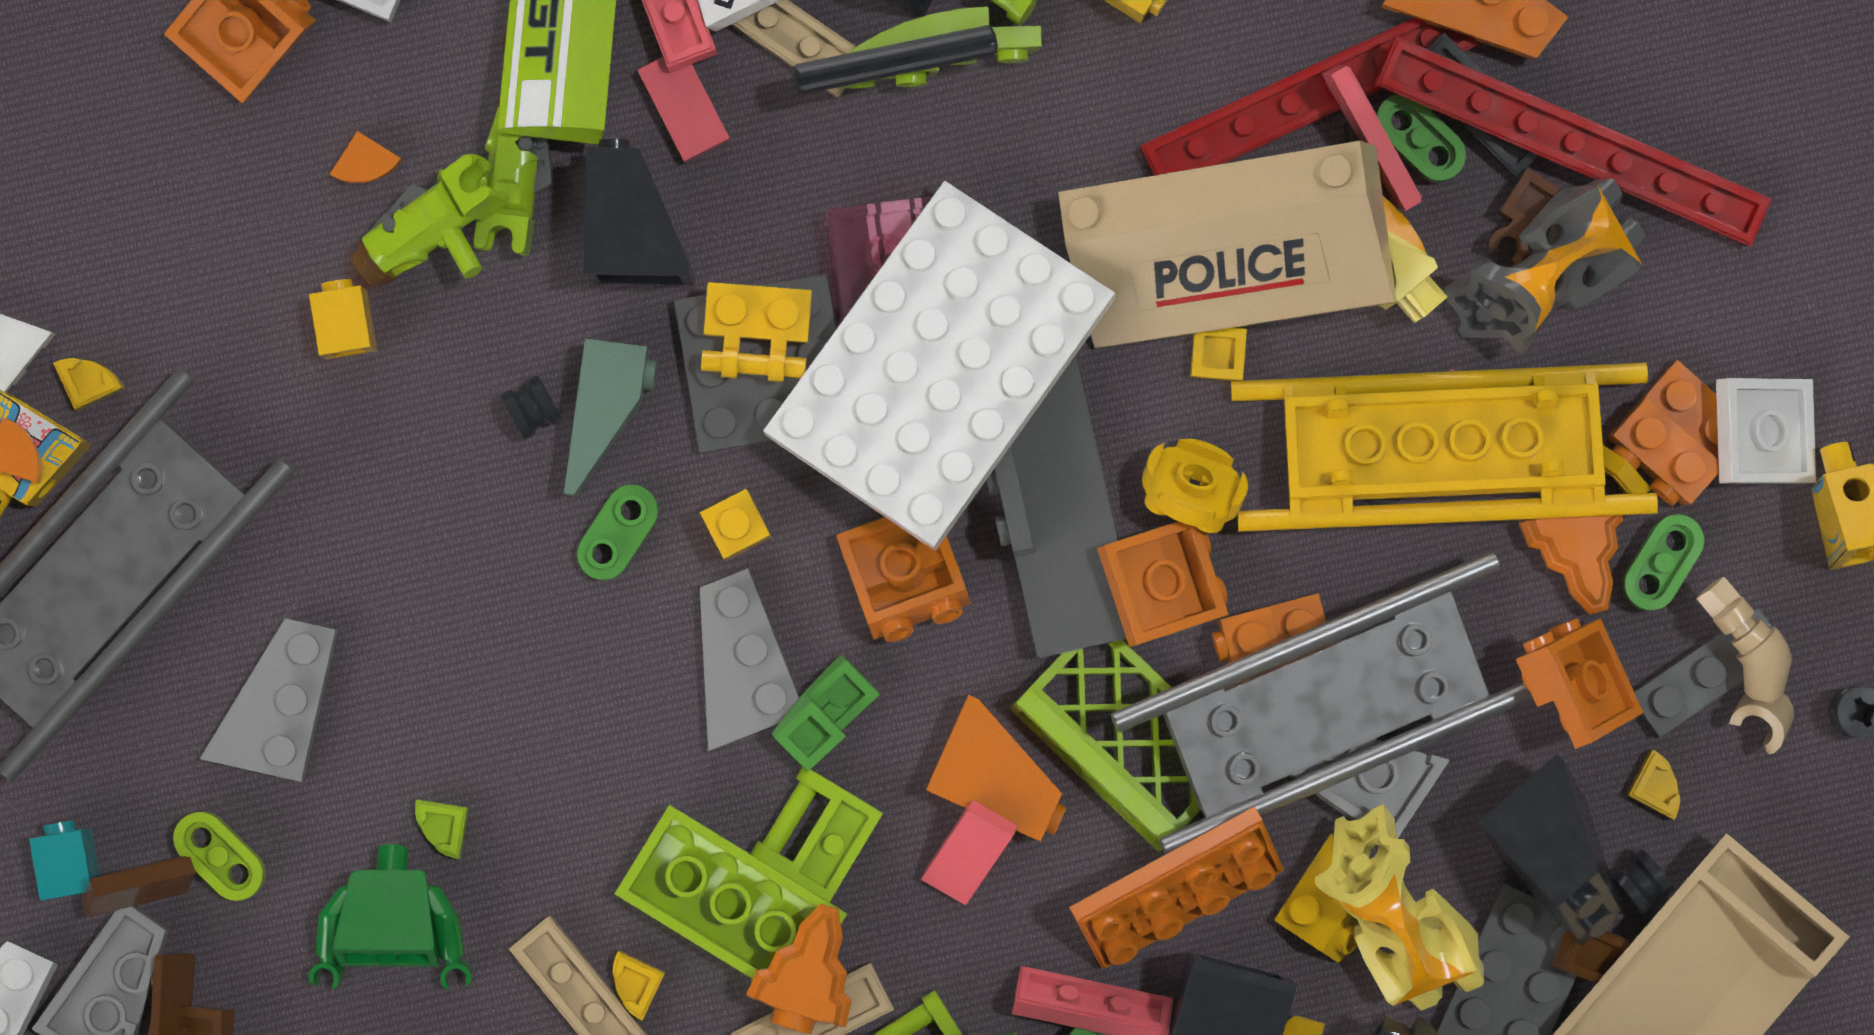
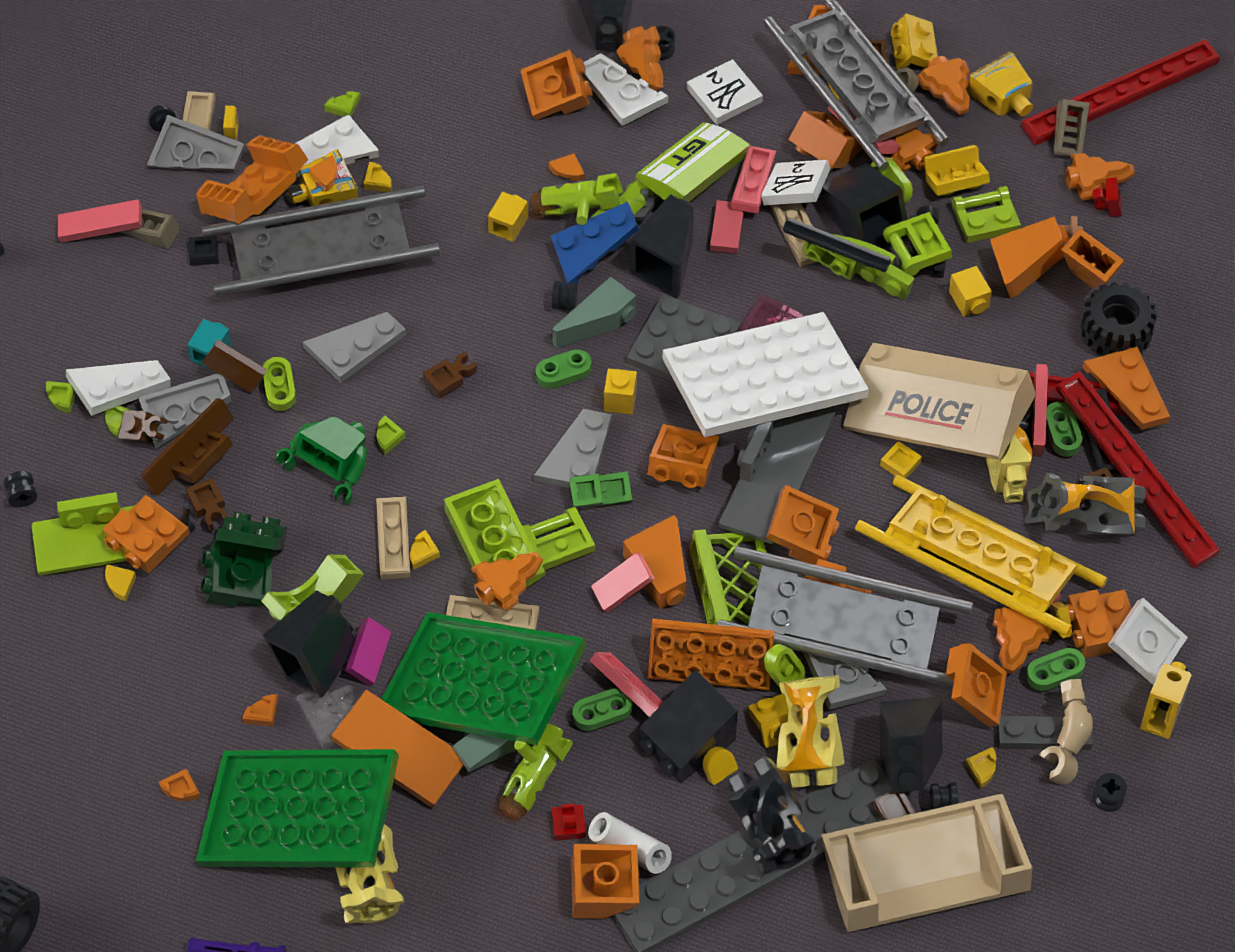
camera: 40 degrees right, 30 degrees down
(456, 672) = (446, 376): none -> reddish brown plate
(505, 300) = (584, 245): none -> blue wing
(756, 314) = (693, 312): yellow plate -> none
(1203, 506) = (849, 499): yellow plate -> none
(1294, 840) = (783, 664): none -> lime plate

